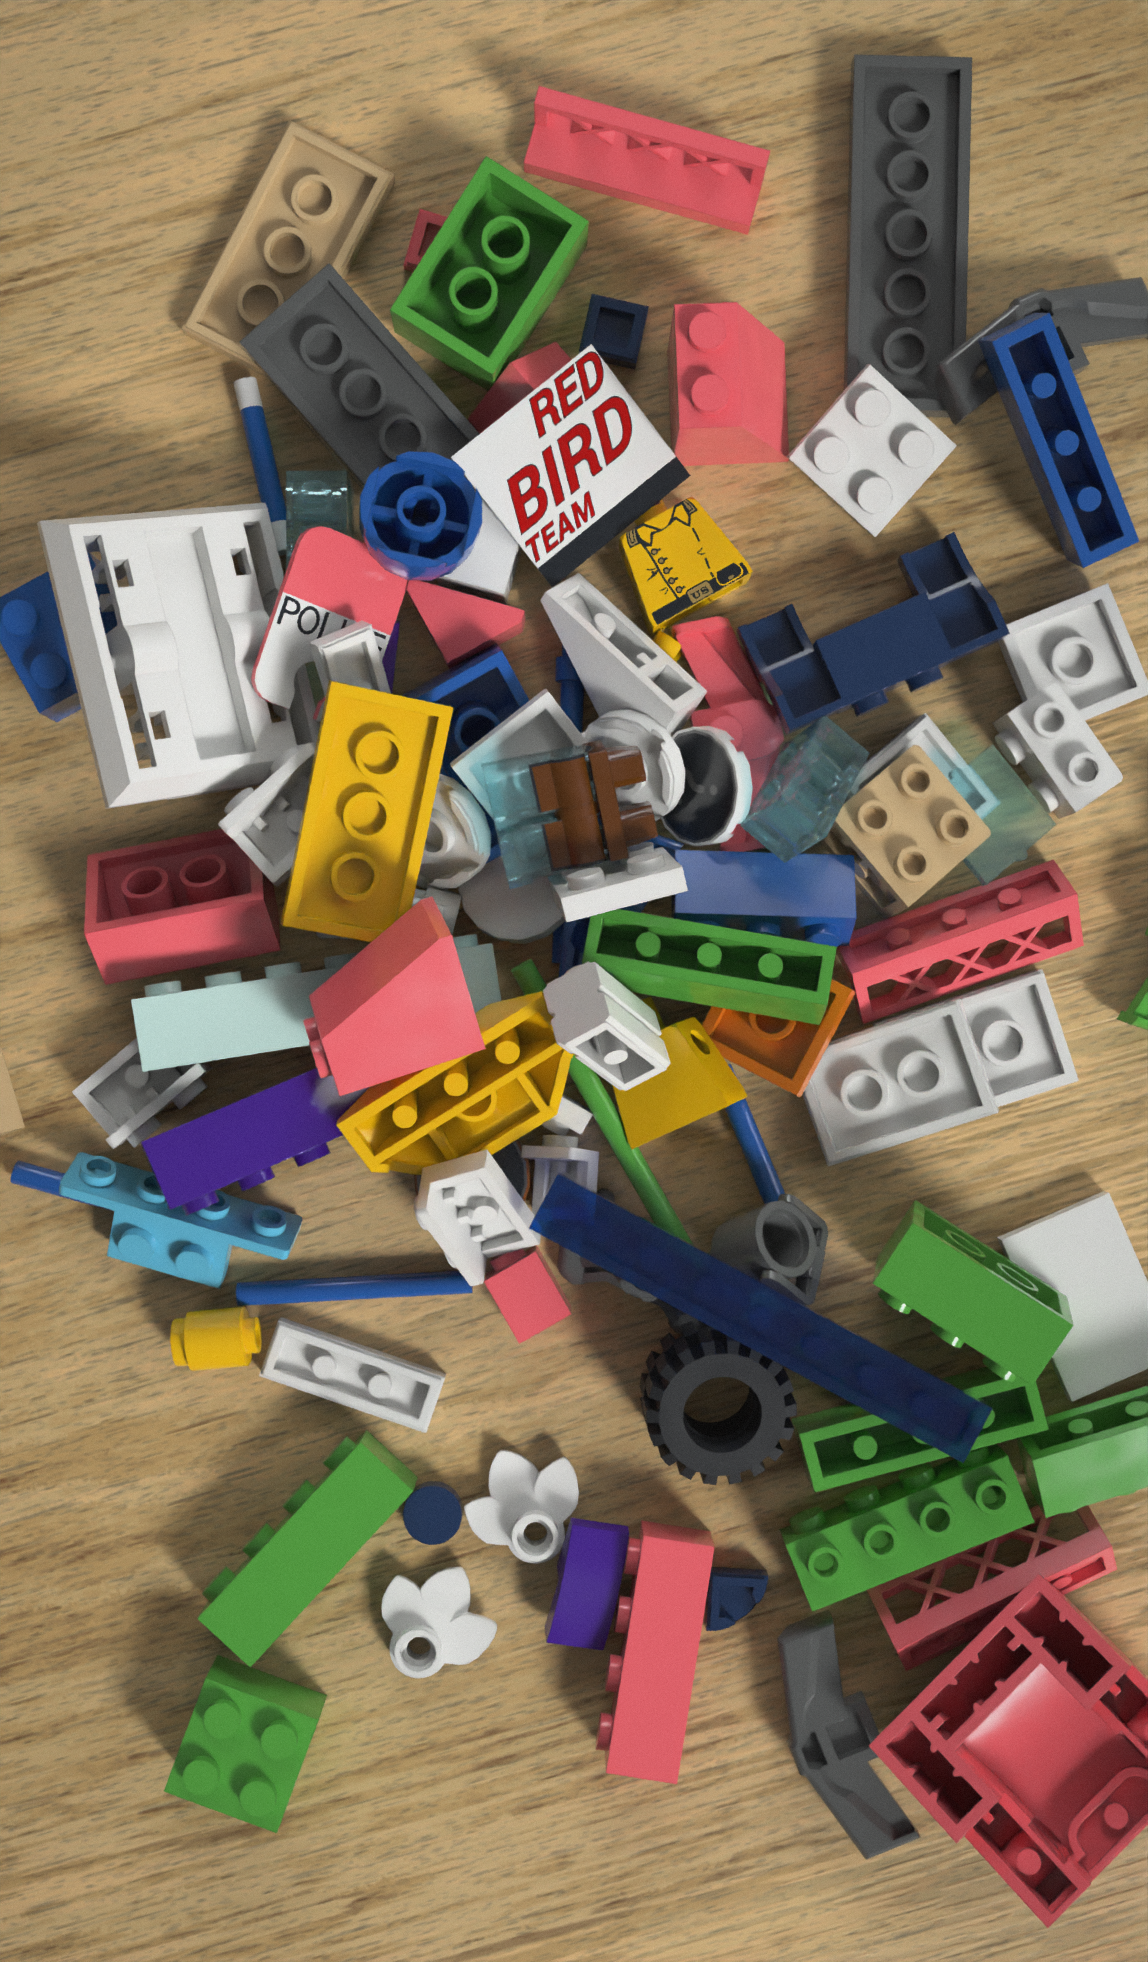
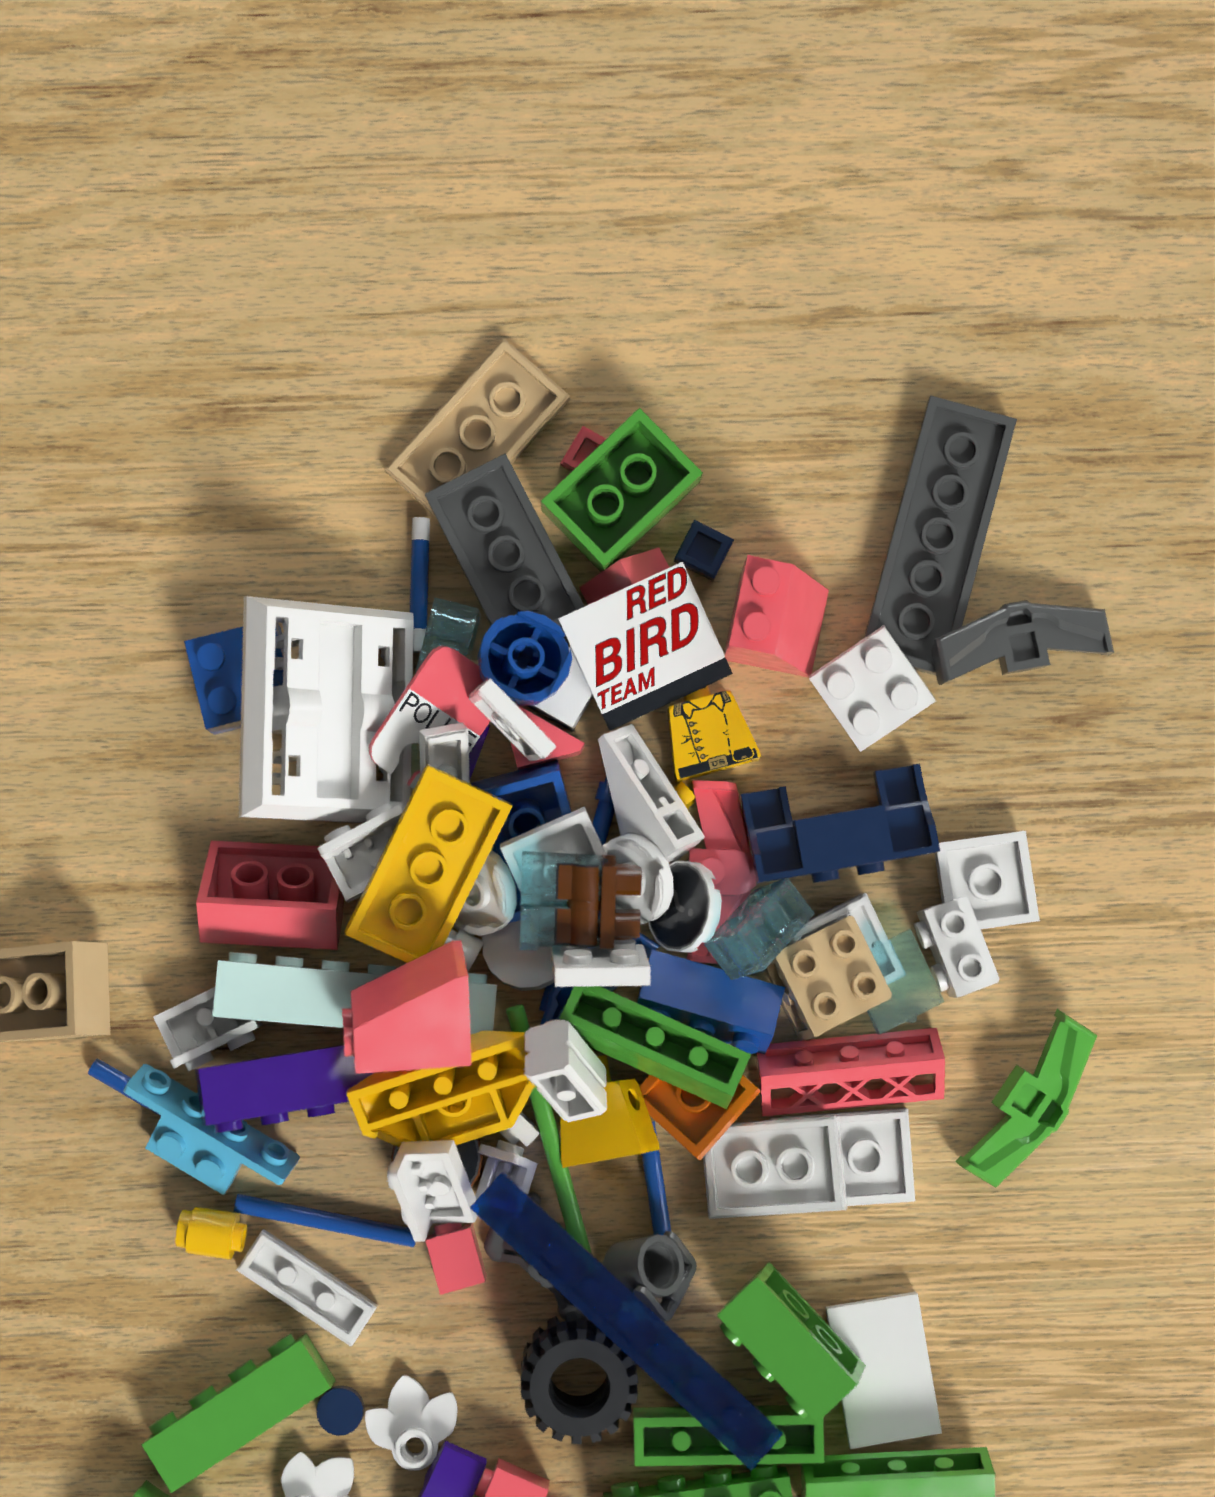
camera: 10 degrees right, 5 degrees down
(423, 598) = (511, 721): none -> white tile
(645, 160) = (757, 434): coral fence -> none
(1058, 439) = (1010, 718): blue brick -> none

